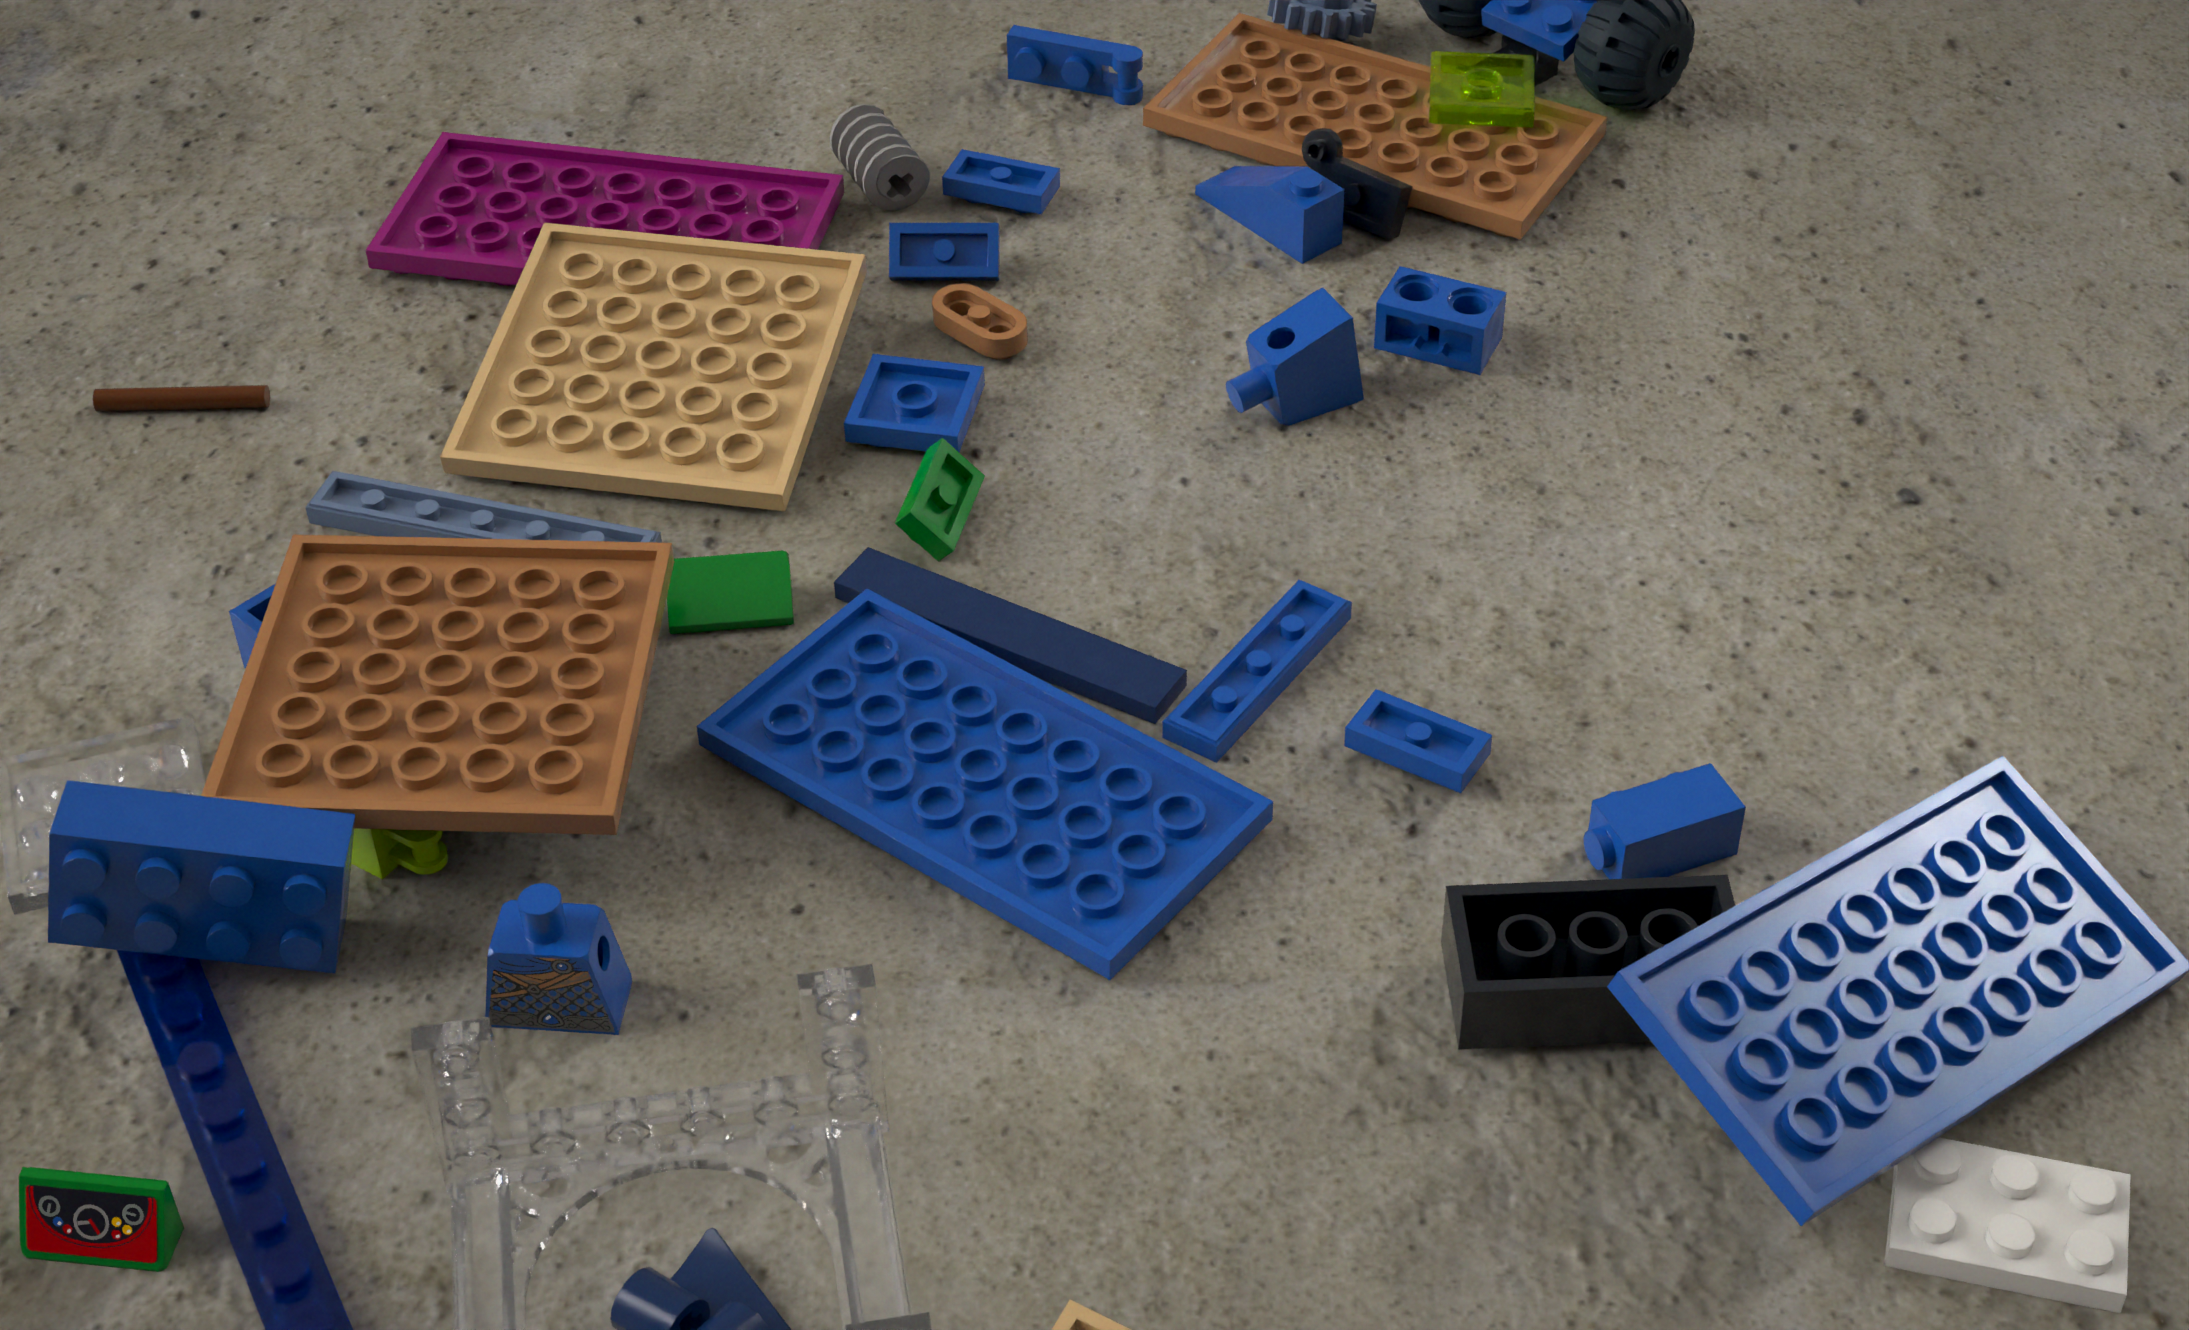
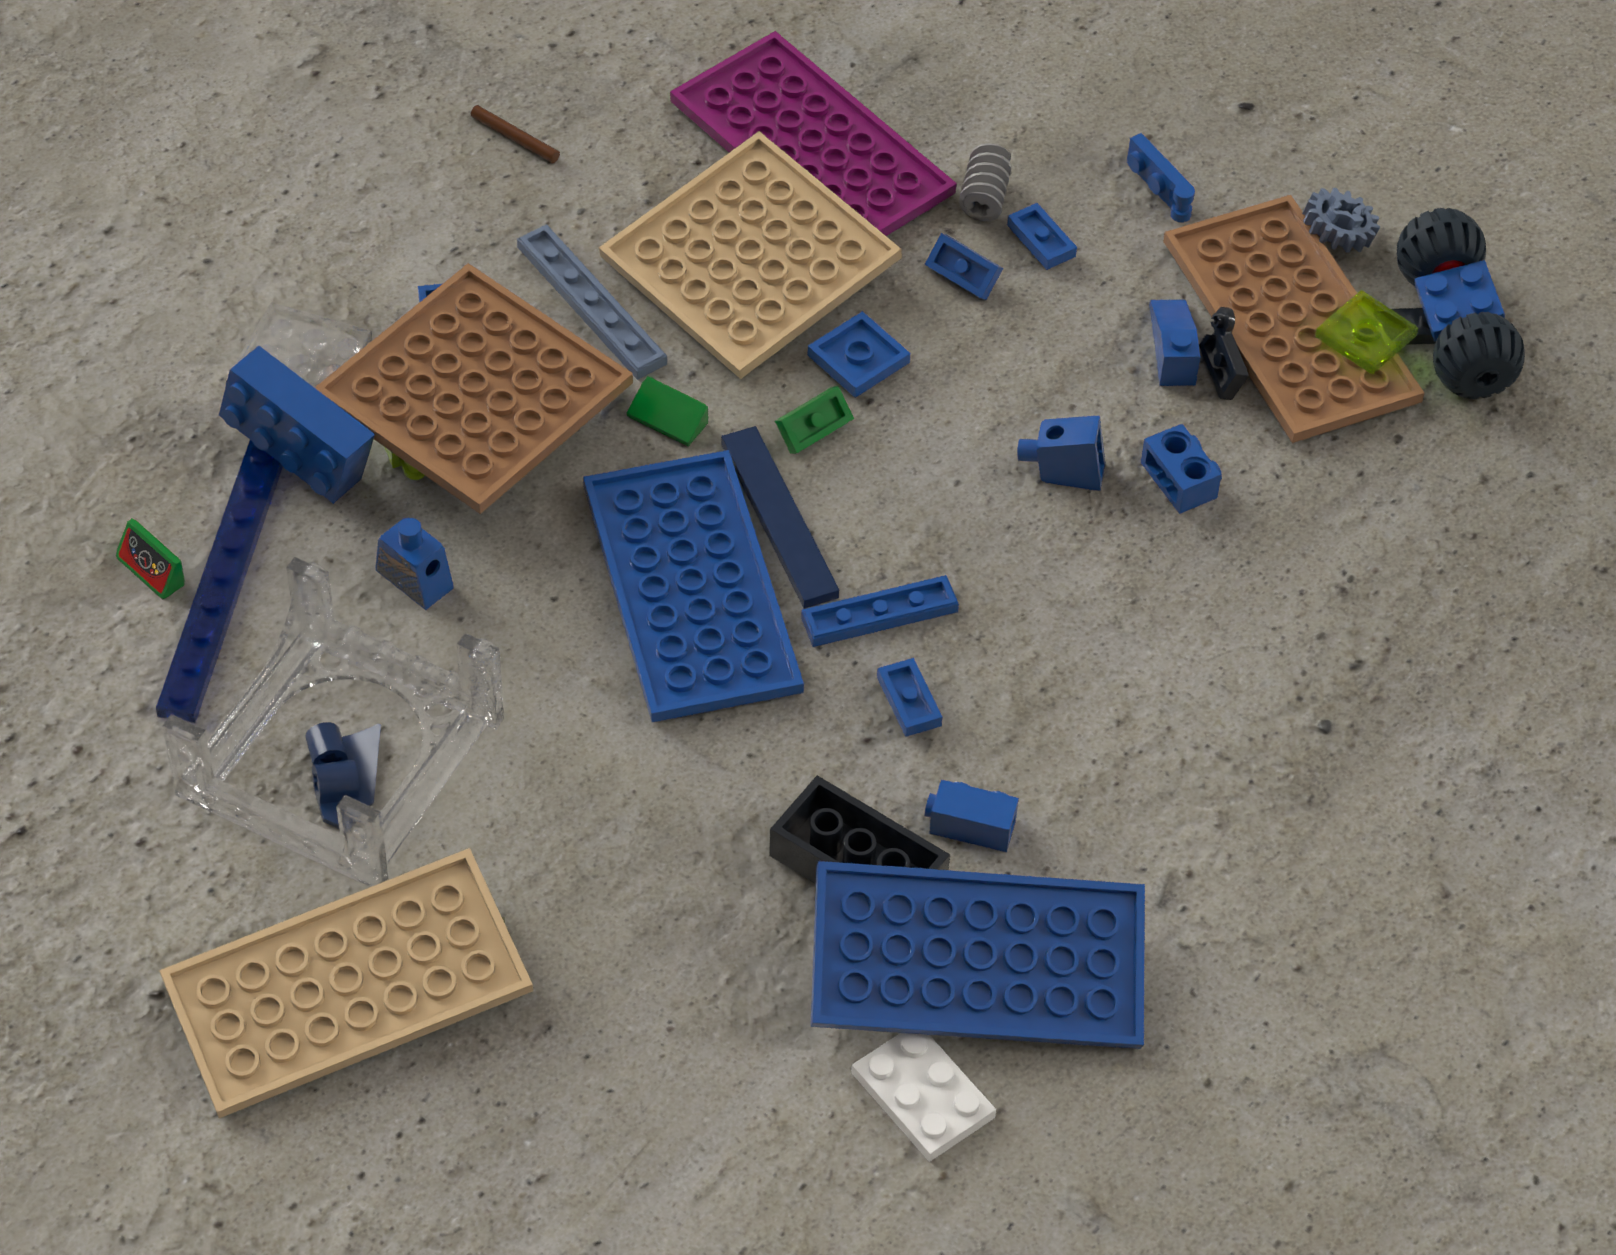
camera: 35 degrees right, 10 degrees up
(980, 320) = (941, 321): medium nougat plate -> none

